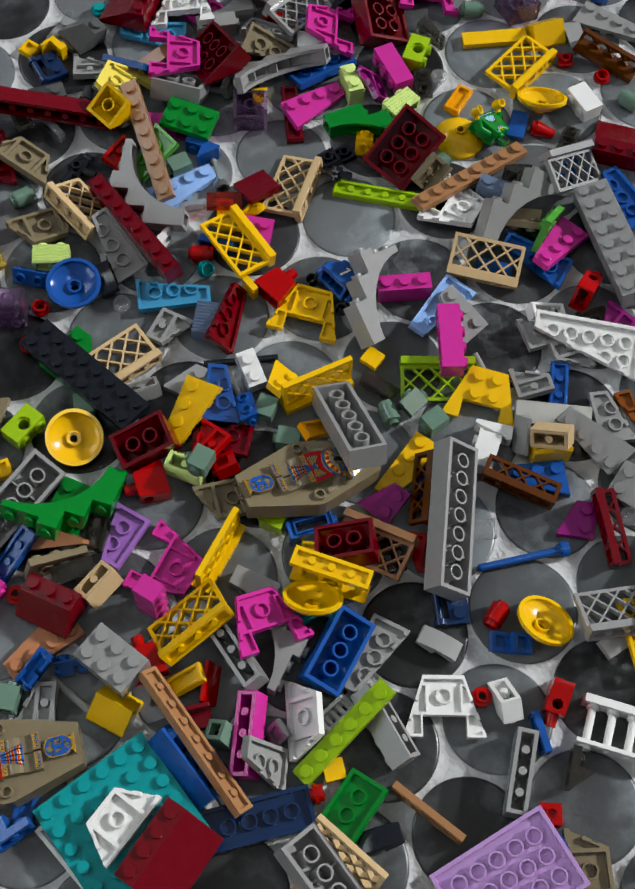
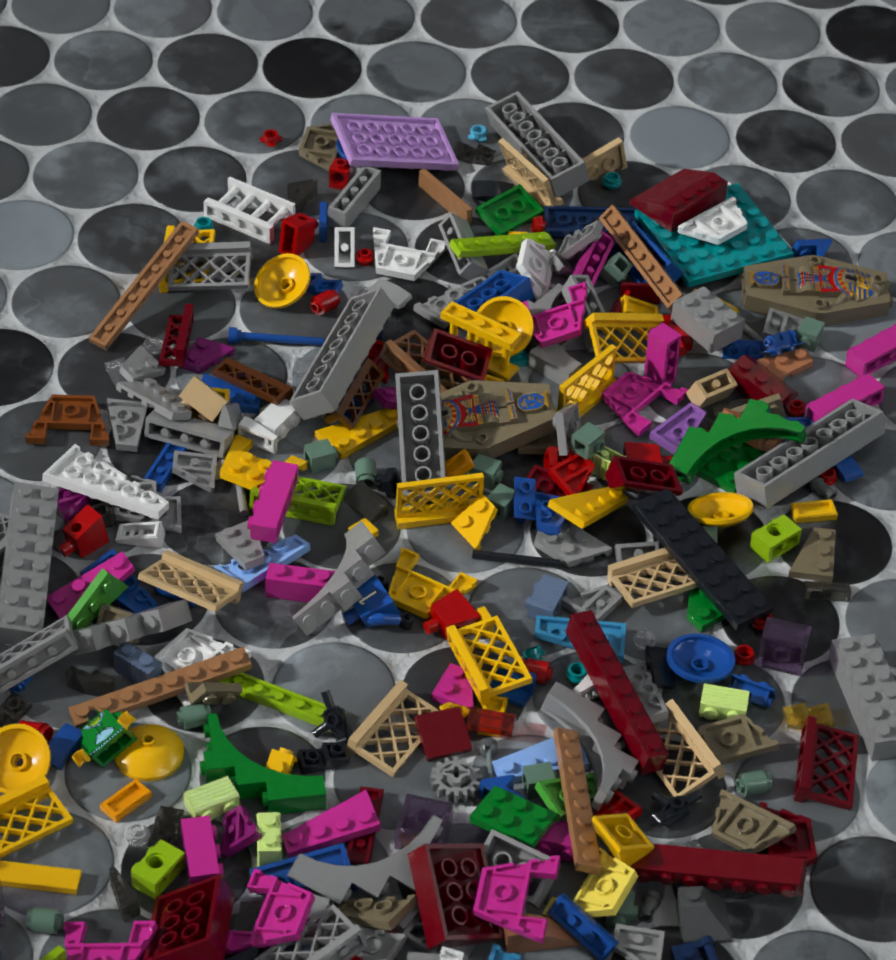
camera: 165 degrees left, 20 degrees down
(225, 474) = (566, 423): none -> light grey wing
(226, 322) = (523, 587): dark red wing -> none
(238, 154) = (455, 779): none -> light grey gear
(250, 370) = (509, 533): white brick -> none
(370, 406) = (388, 482): none -> black tile
(403, 147) = (240, 725): dark red slope -> none
(413, 401) = (336, 471): sand green brick -> none

